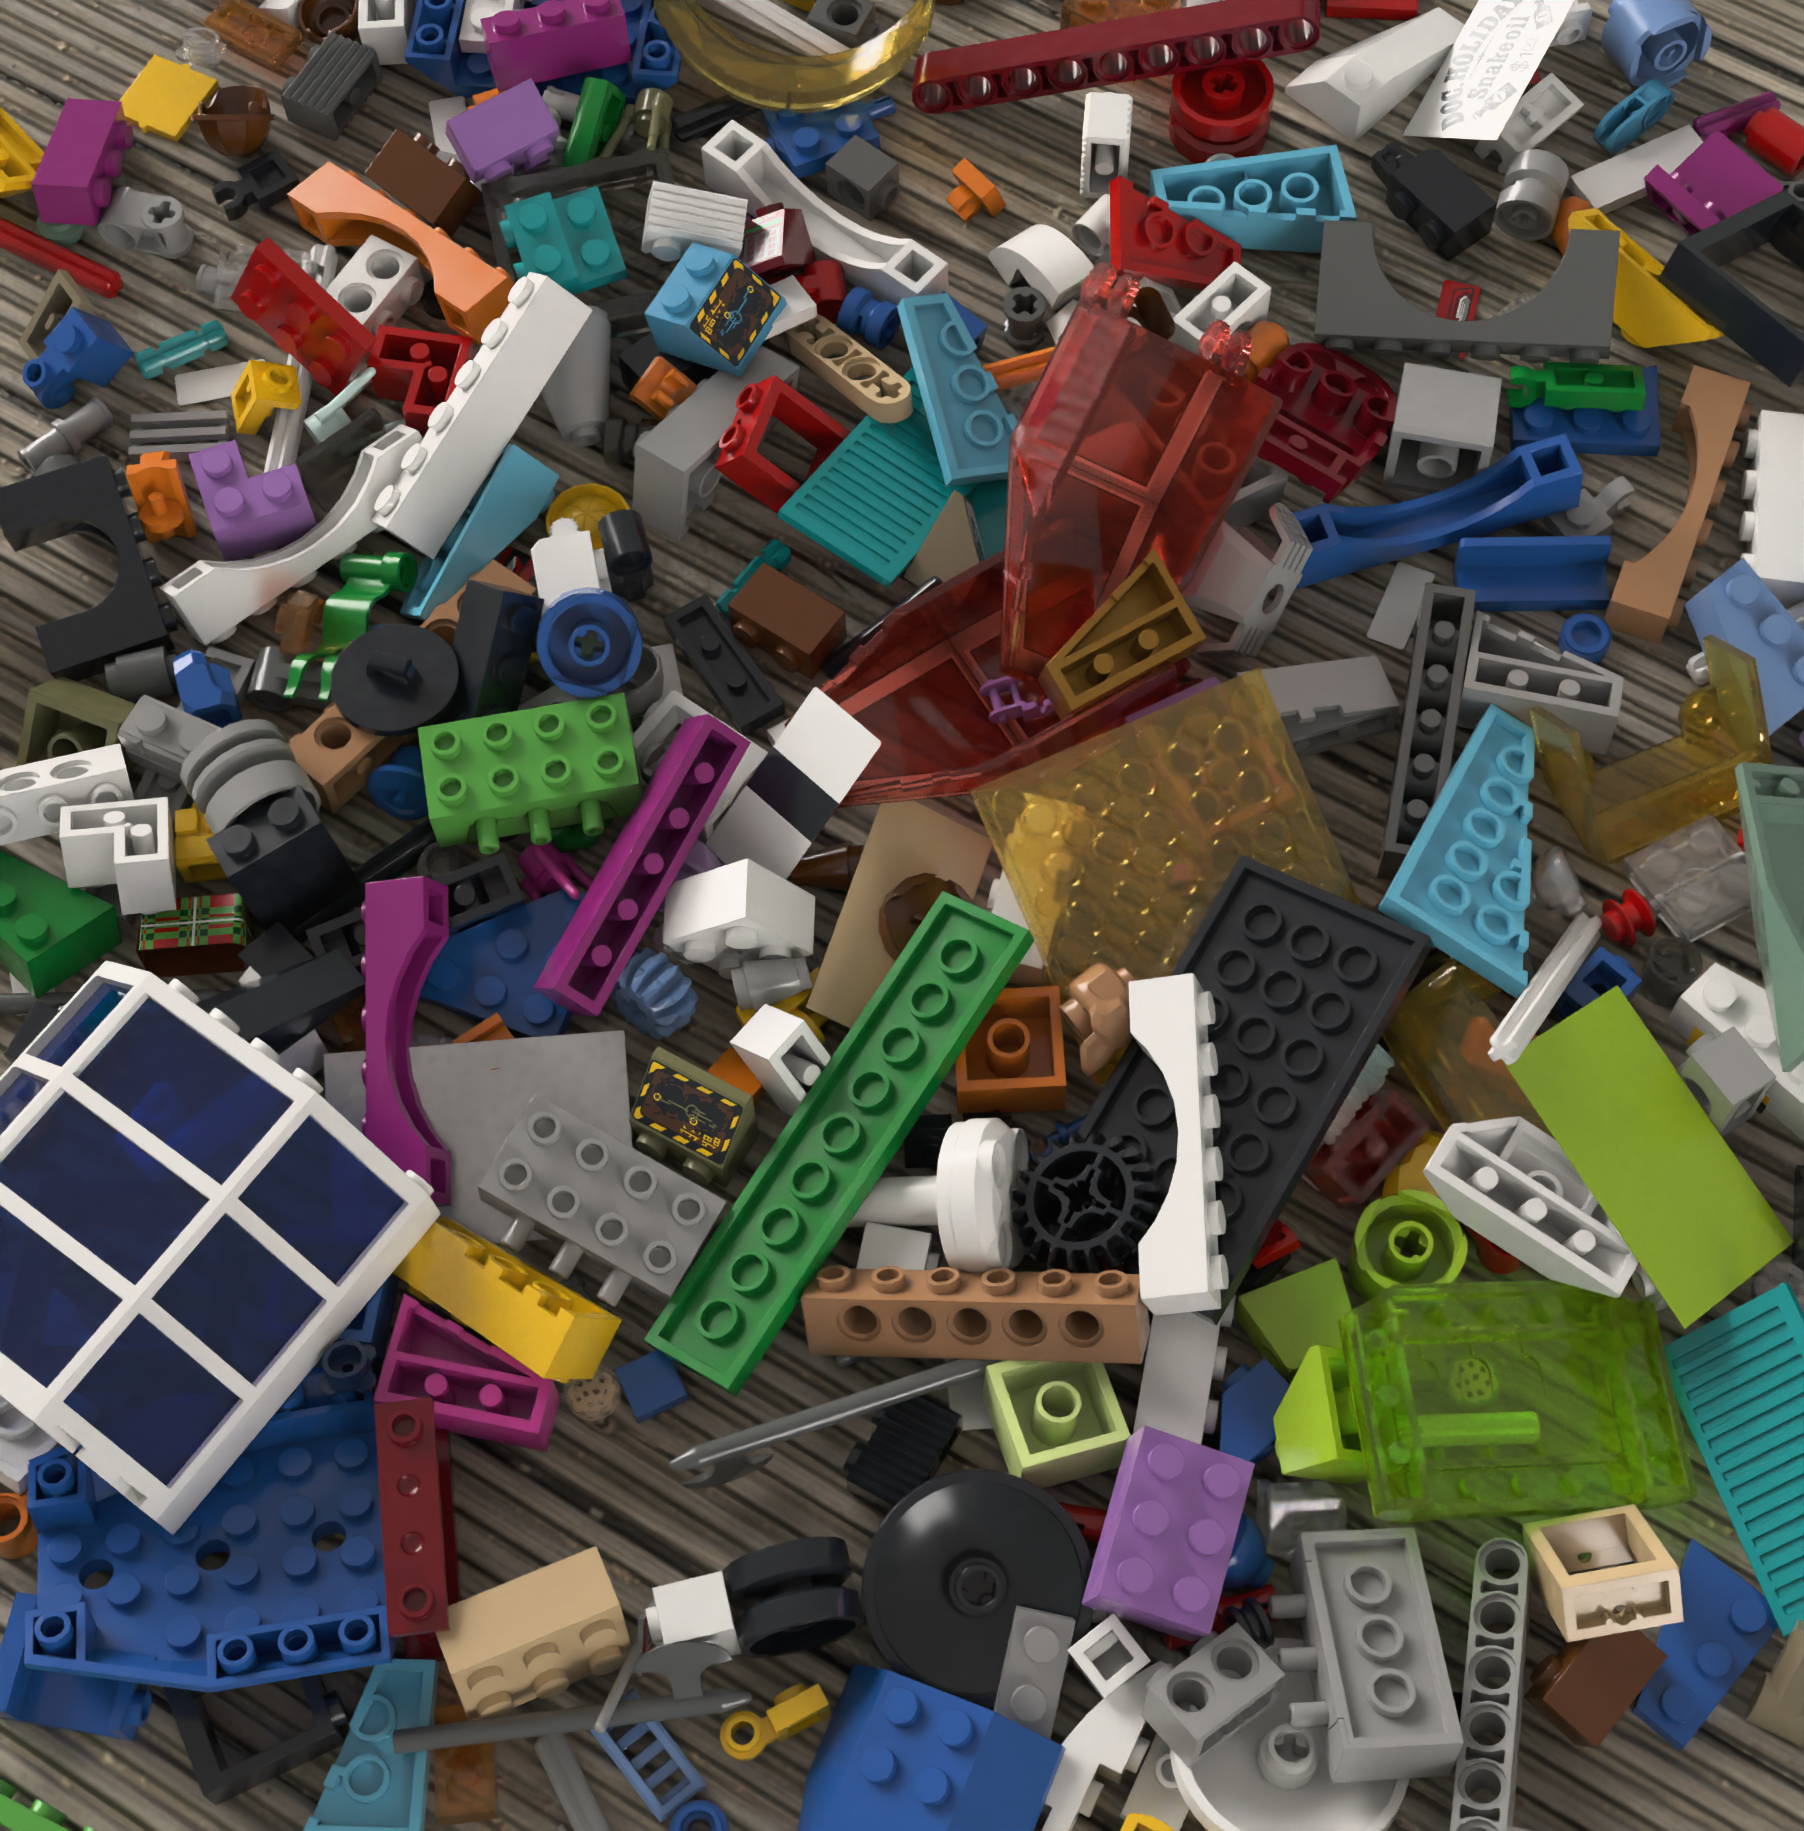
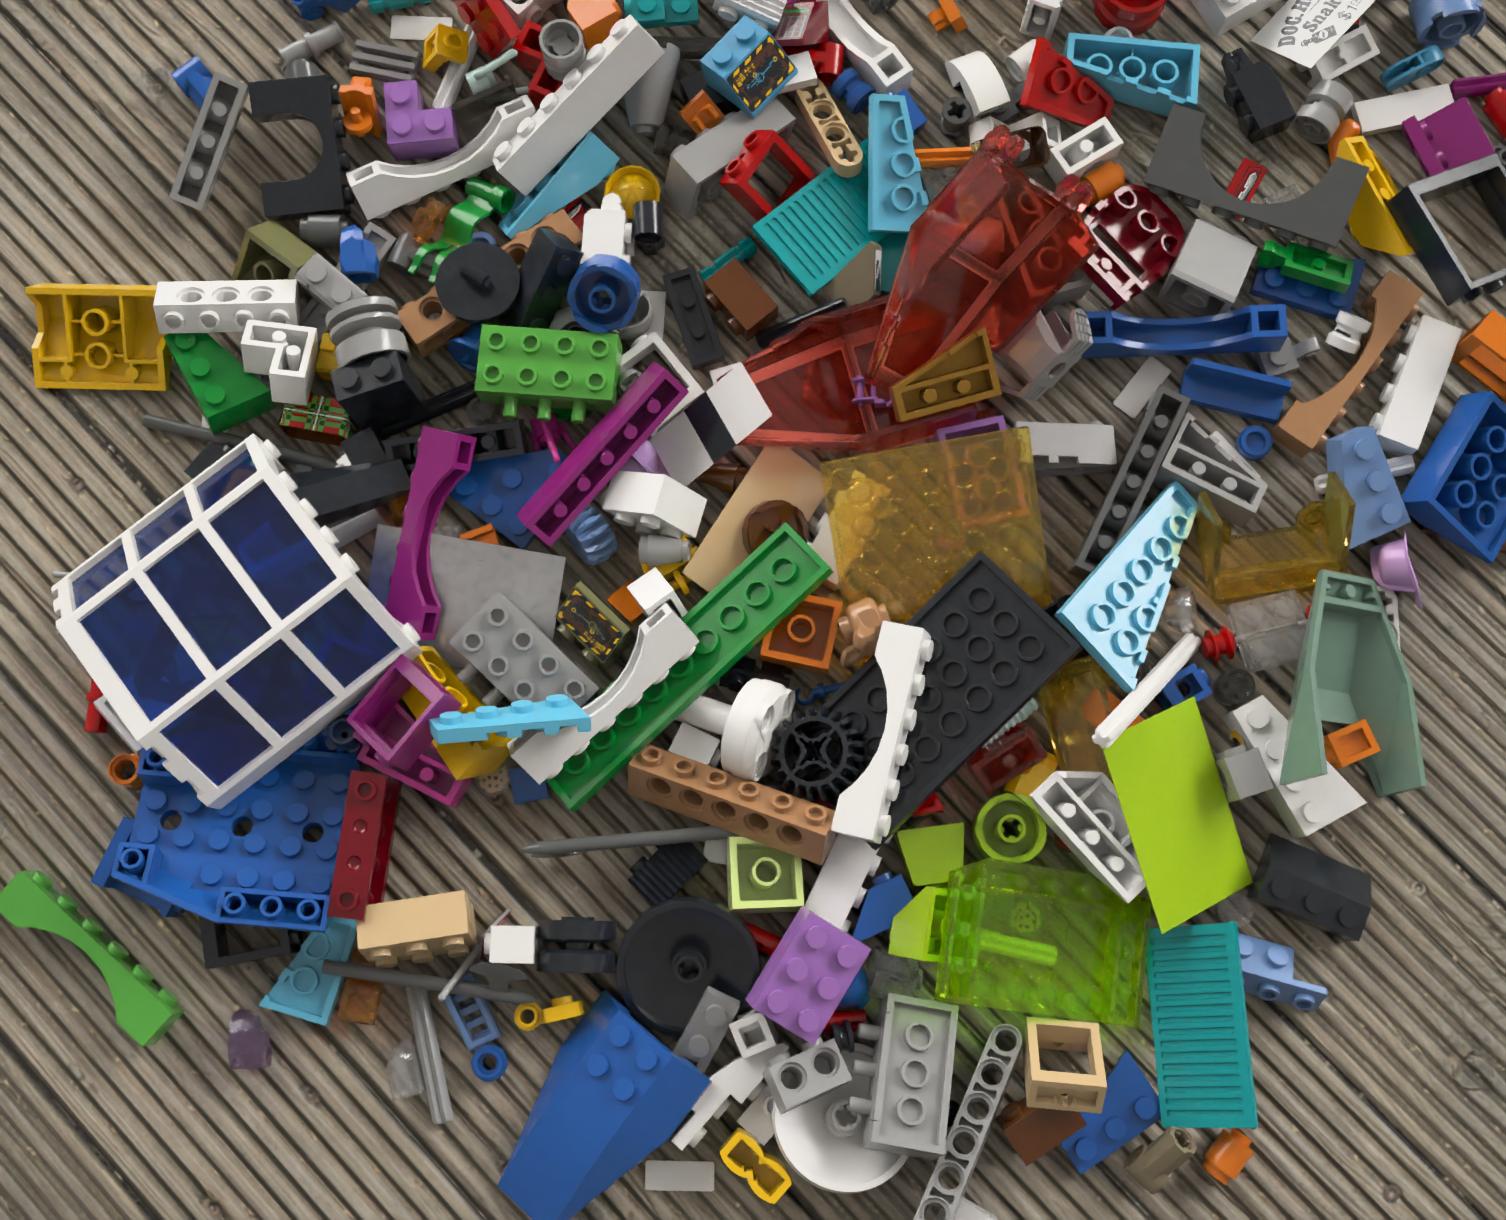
camera: 15 degrees right, 15 degrees up
(401, 1284) = (384, 697): none -> magenta window
(441, 341) = (561, 47): none -> light grey wheel
(569, 1267) = (510, 721): none -> medium azure wing
(801, 1106) = (658, 646): none -> white arch
(1665, 448) = (1352, 325): none -> white wheel

